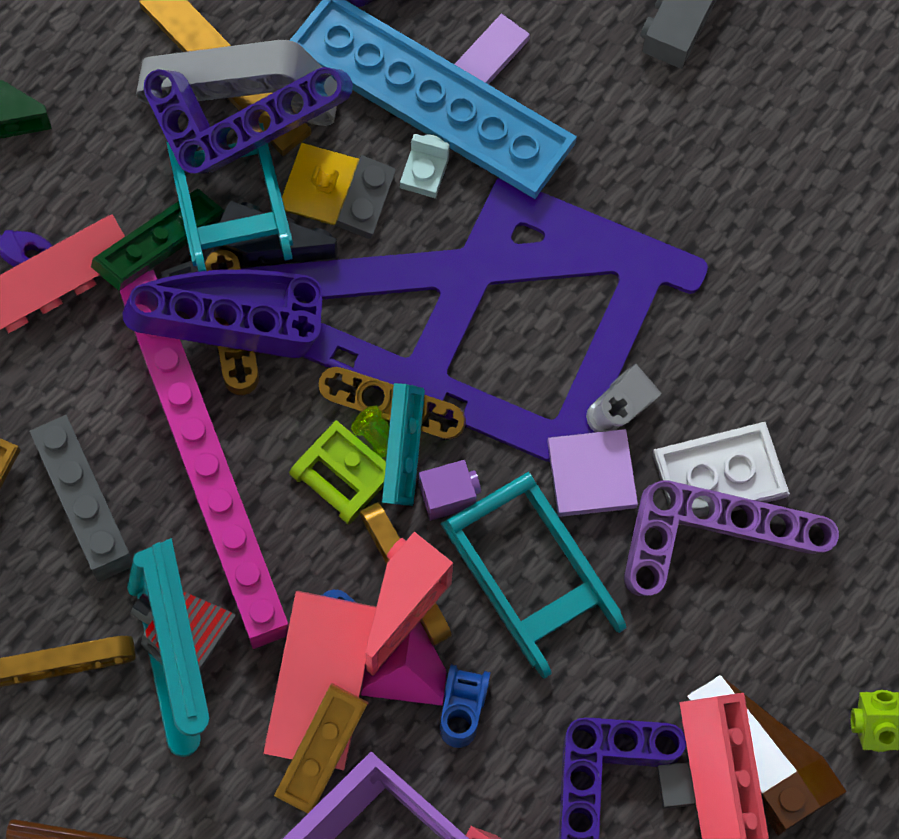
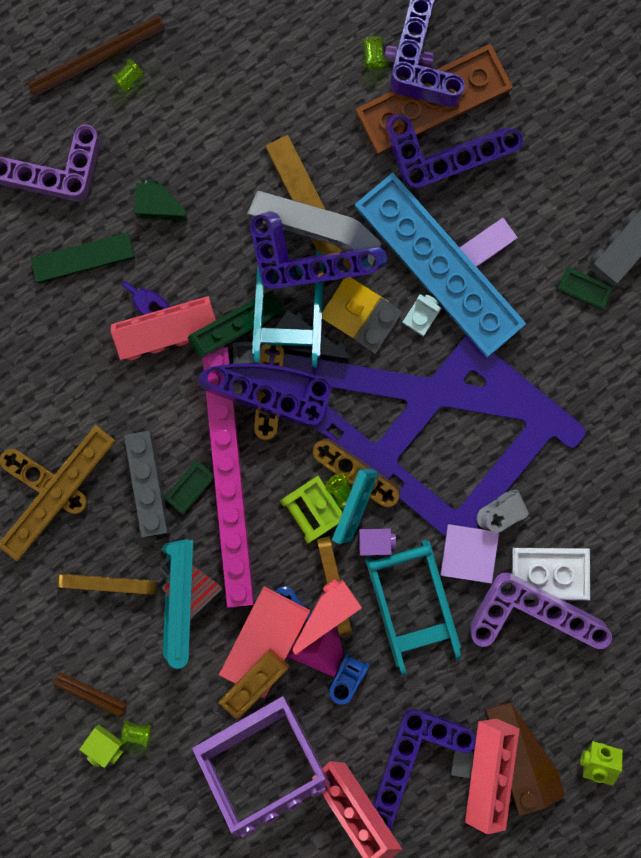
camera: 20 degrees right, 15 degrees up
(148, 491) = (189, 487): none -> dark green tile
(644, 77) = (585, 288): none -> dark green tile

